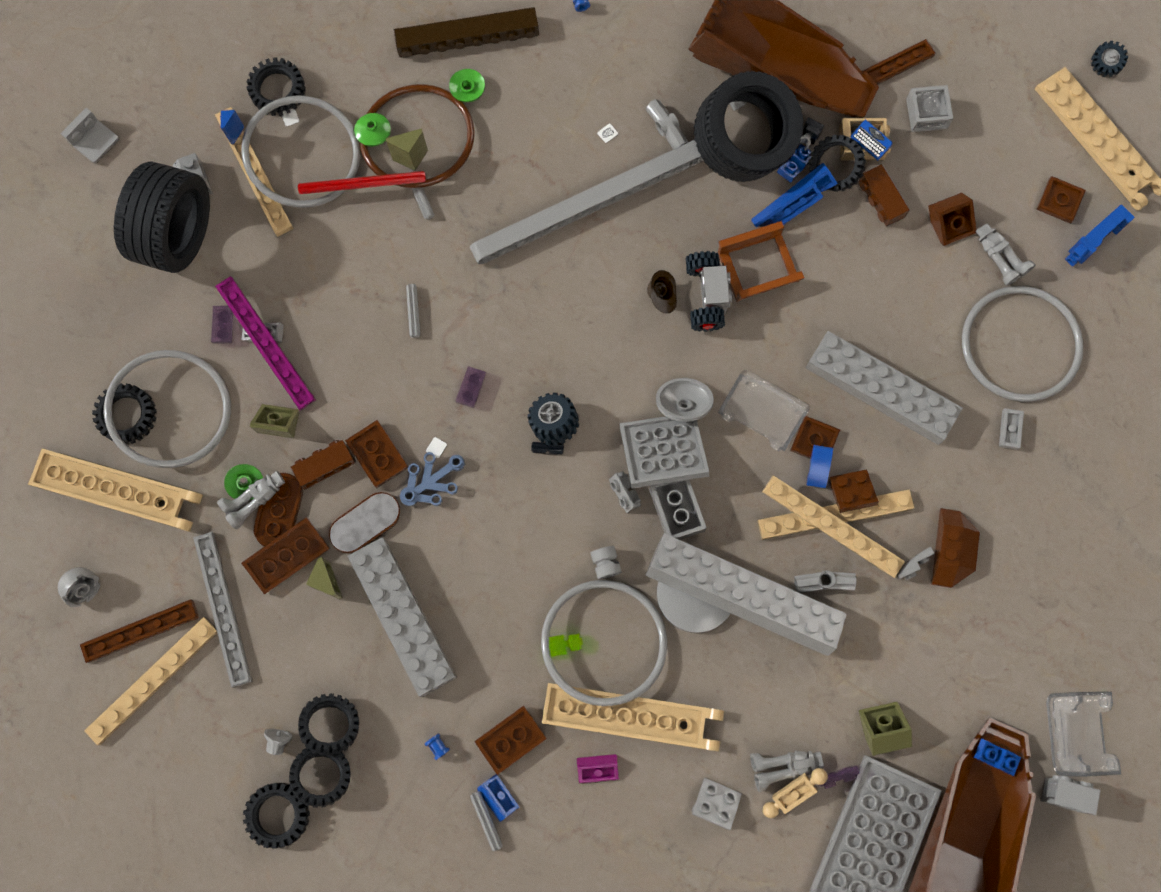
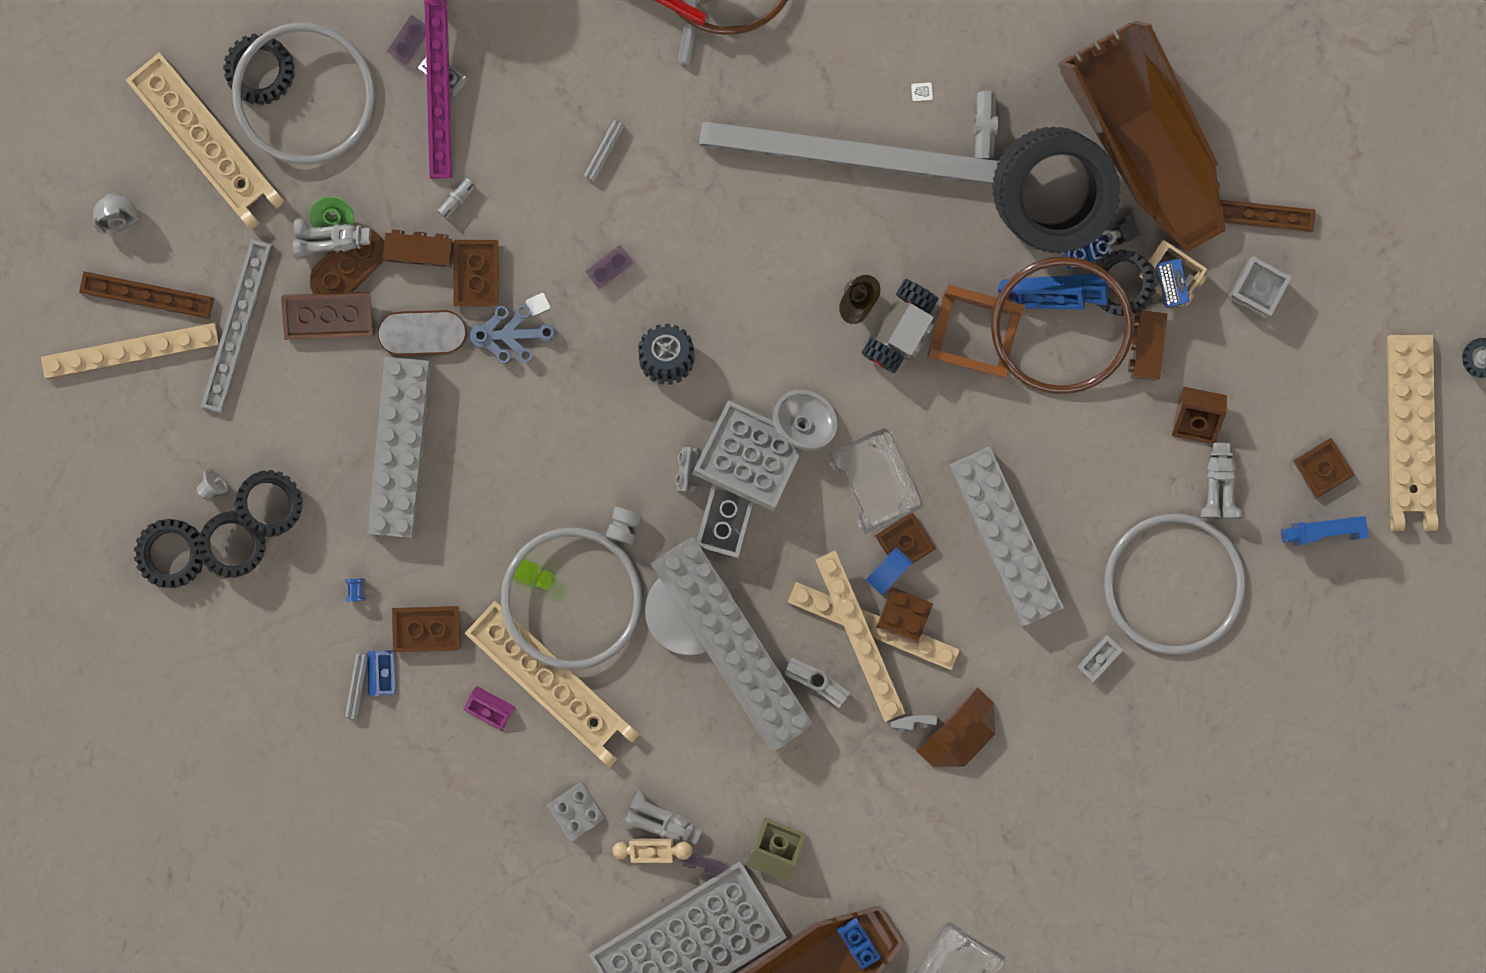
camera: 25 degrees right, 10 degrees up
(275, 421) = (400, 173): olive slope -> none
(323, 579) = (348, 365): olive slope -> none
(328, 411) = (456, 198): none -> light grey pin
(539, 447) = (635, 371): black piece -> none
(871, 215) = (1062, 261): none -> reddish brown piece

